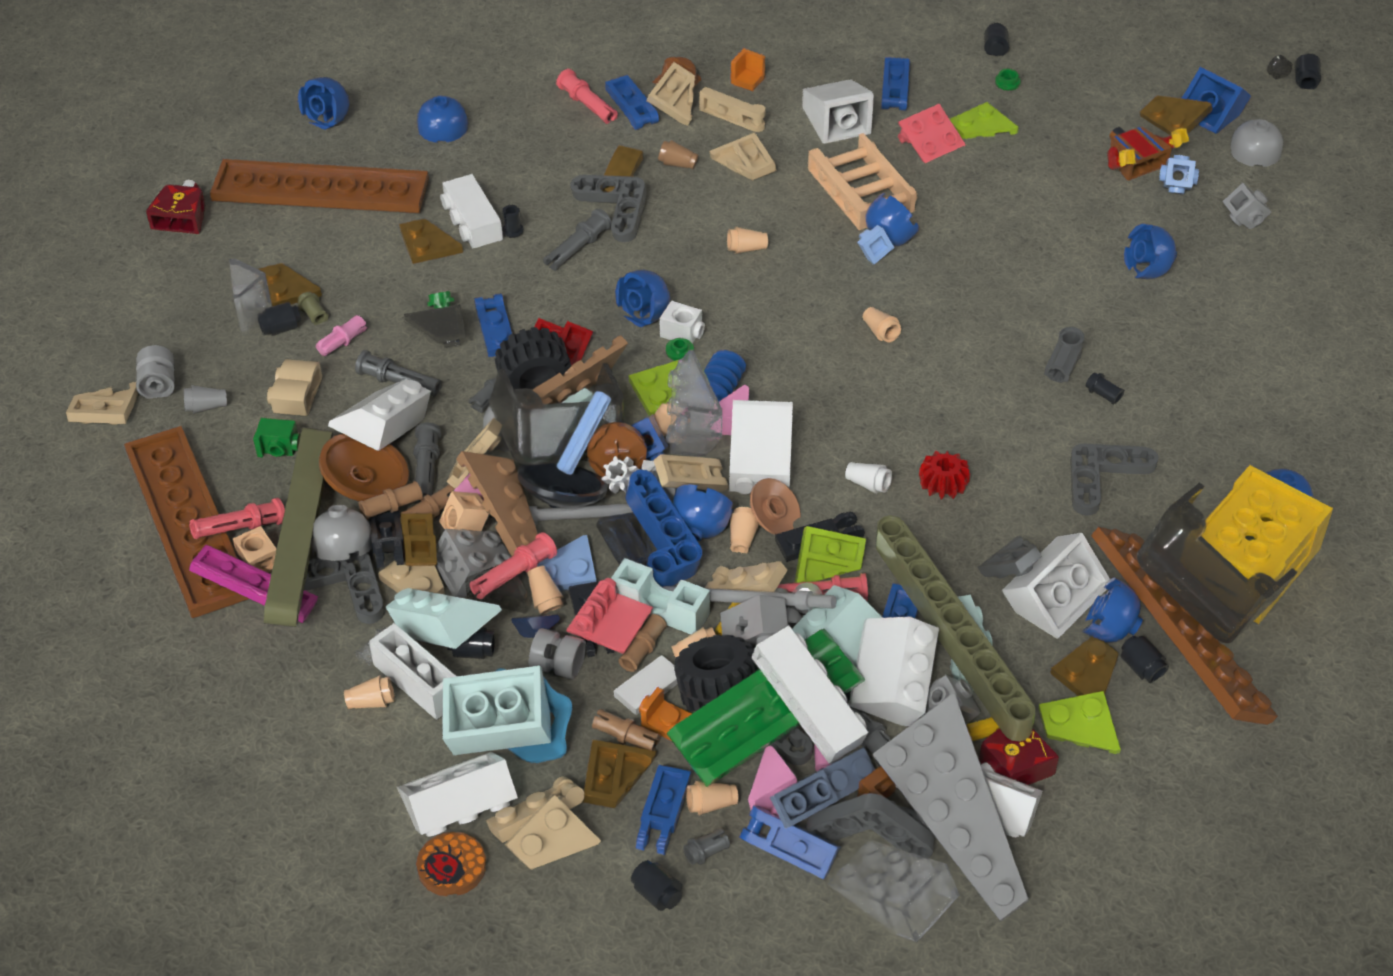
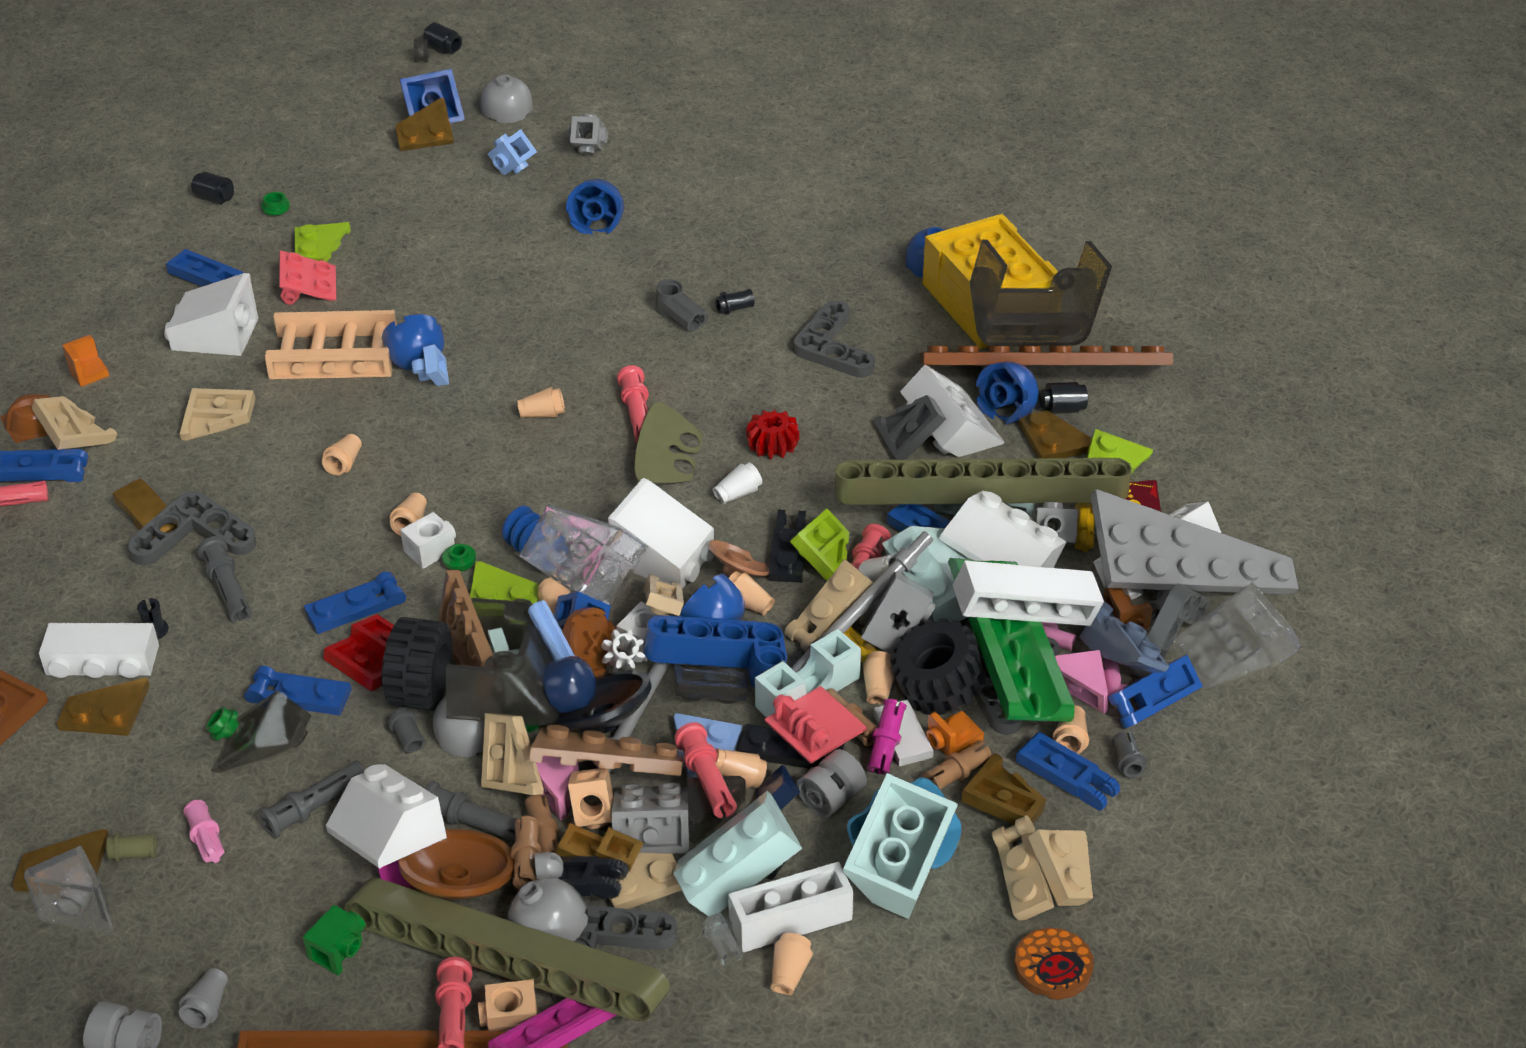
camera: 65 degrees left, 5 degrees down
(278, 319) = (126, 882): black brick -> none
(294, 387) = (260, 898): tan brick -> none
(371, 513) = (548, 865): none -> light grey hinge
(458, 793) = (967, 924): white slope -> none
(547, 450) = (569, 684): none -> dark blue hair
(598, 315) = (355, 603): none -> blue plate
(625, 670) = (886, 736): none -> dark pink pin
(643, 292) = (371, 543): blue cylinder -> none
(656, 885) = (1161, 804): black brick -> none
(676, 155) = (162, 460): medium nougat cone -> none
(707, 301) = (407, 512): none -> light nougat cone
(732, 109) = (134, 394): tan plate -> none
(867, 411) = (659, 432): none -> olive piece
(931, 373) = (634, 395): none -> coral pin
(1140, 151) = (457, 164): torso -> none

